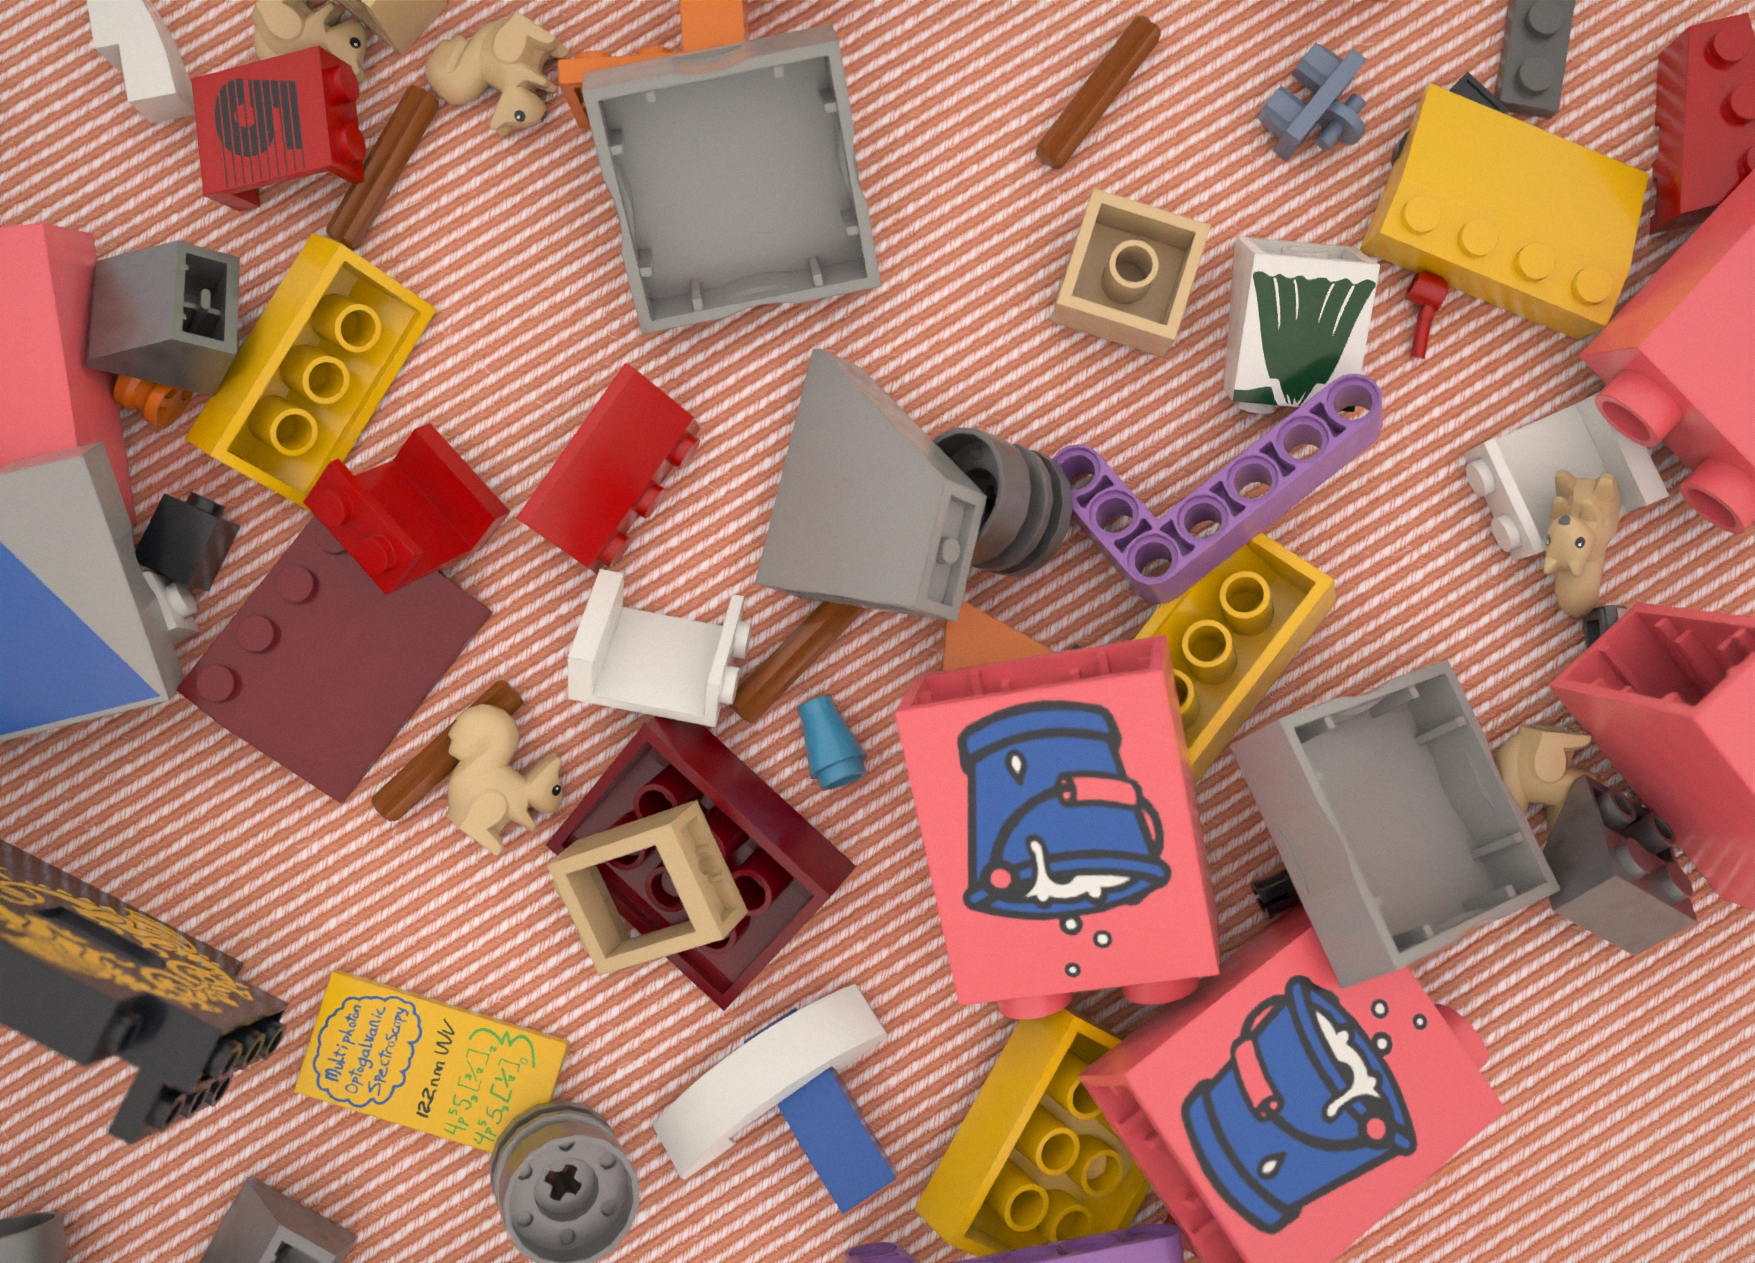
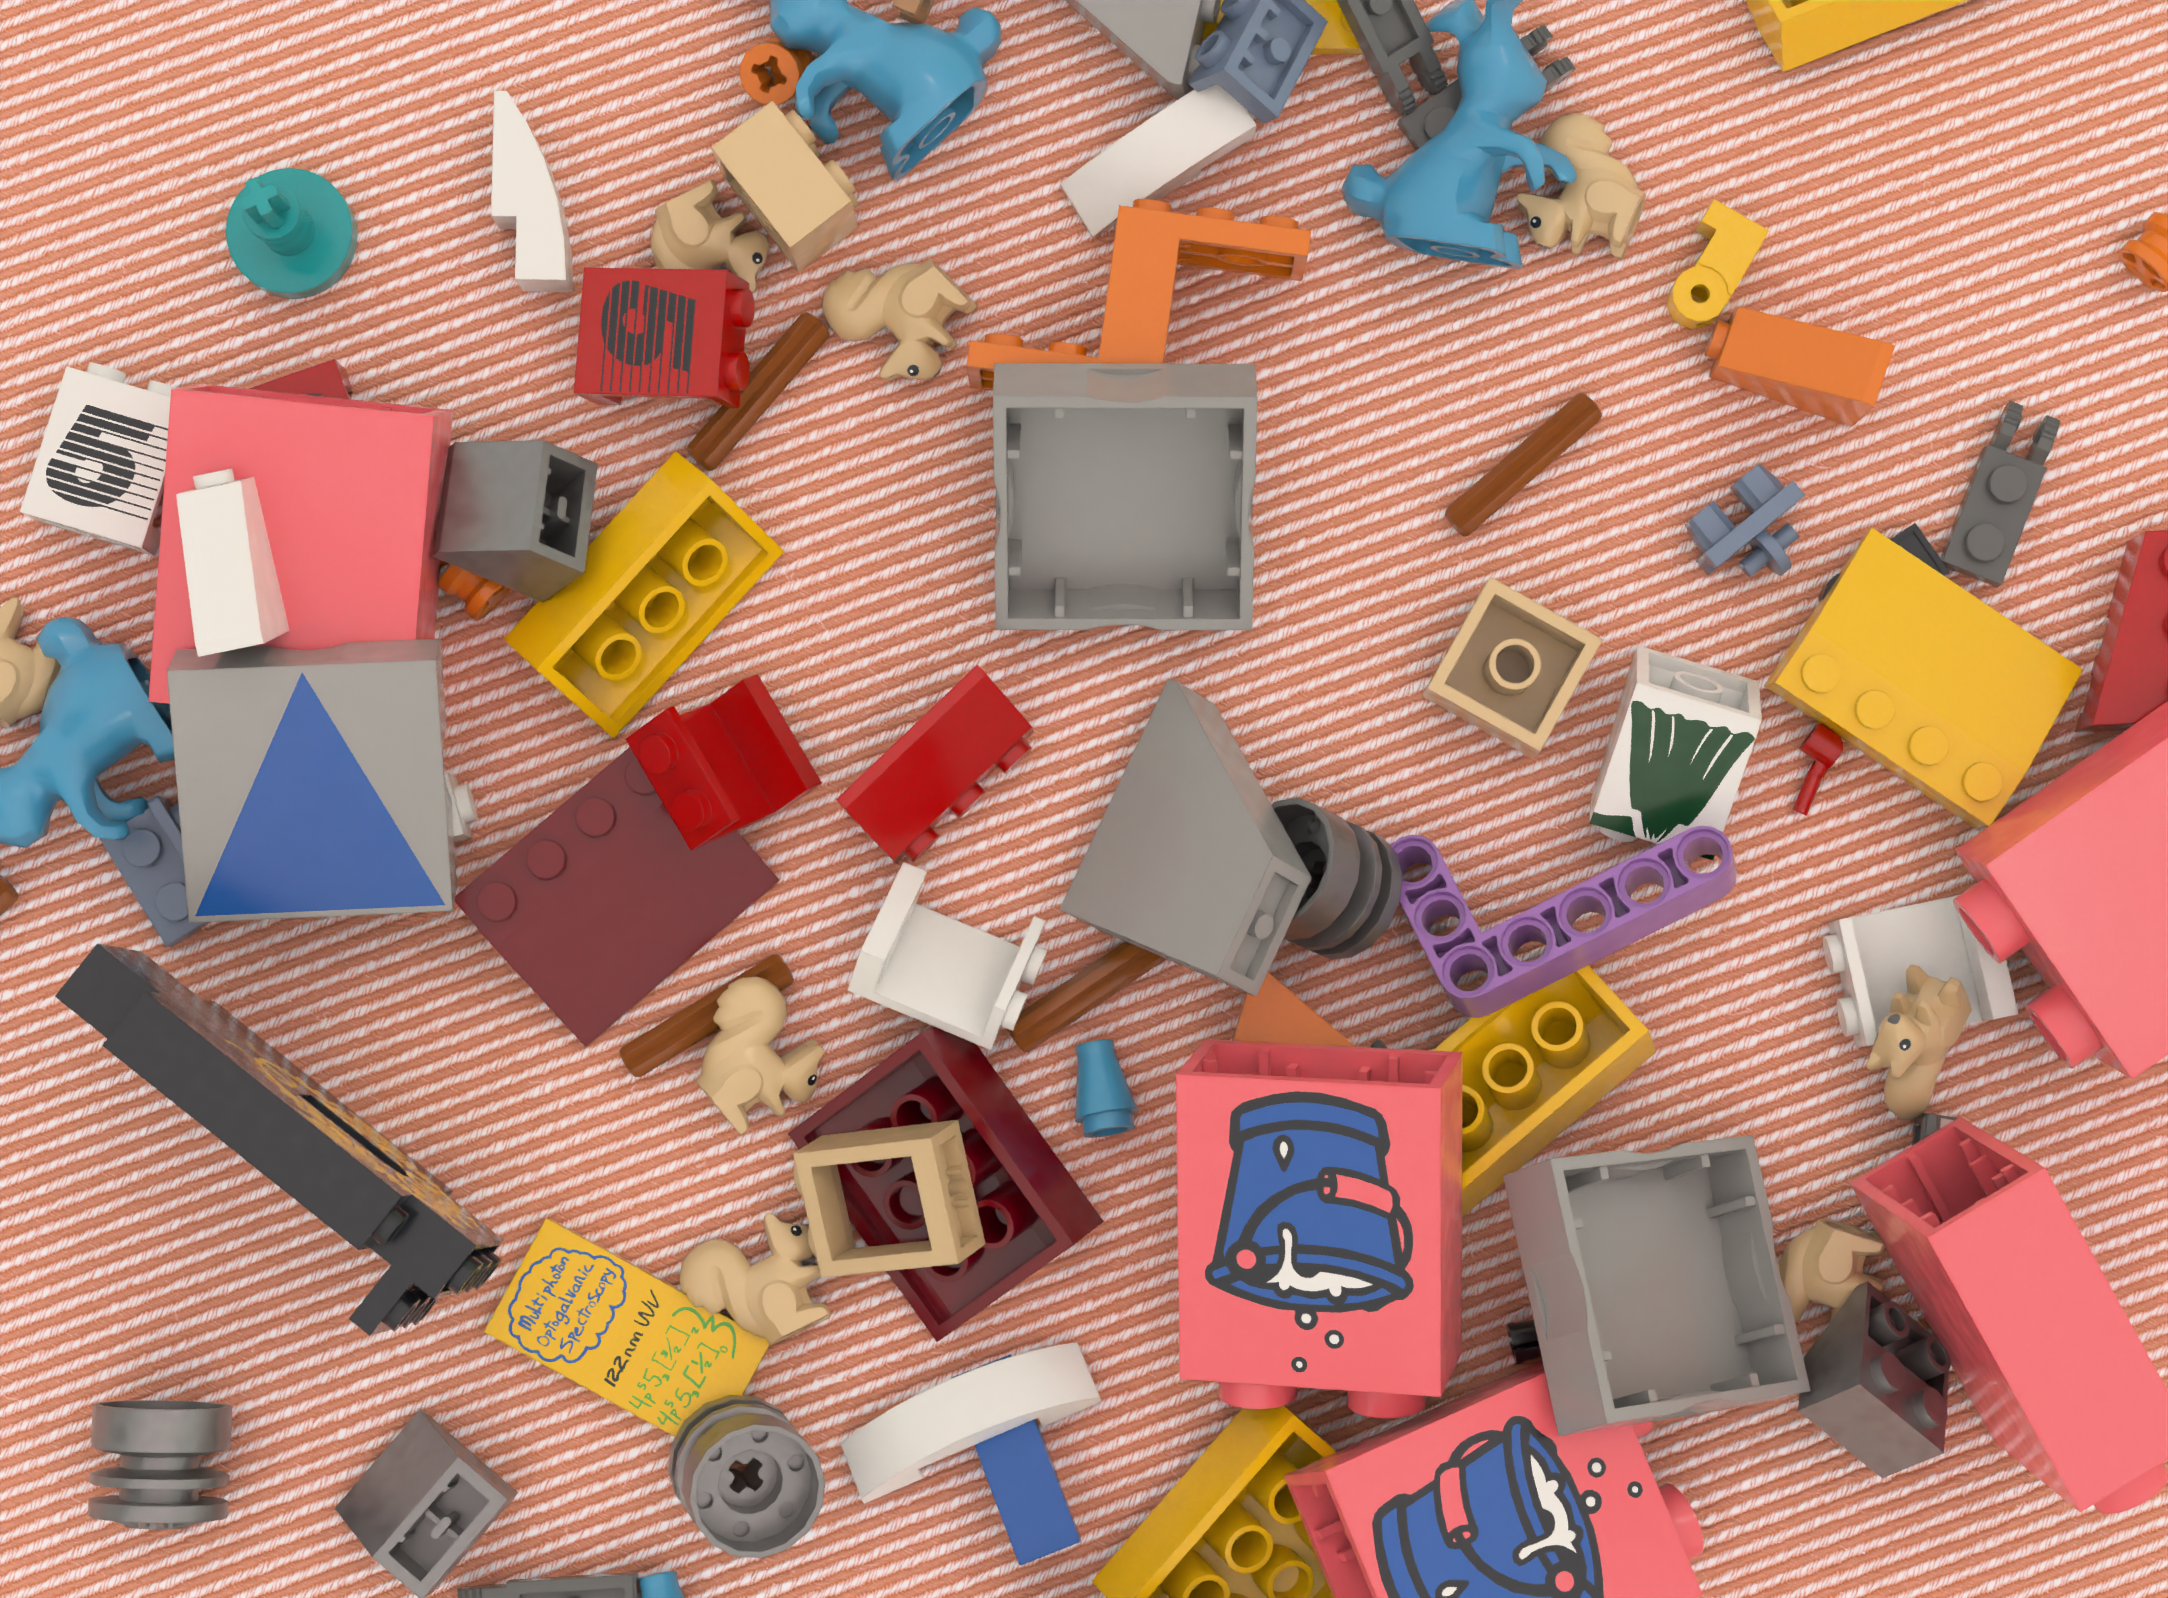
camera: 15 degrees right, 0 degrees up
(187, 540) = (486, 743): black brick -> none
(553, 1003) = (760, 1297): none -> tan animal

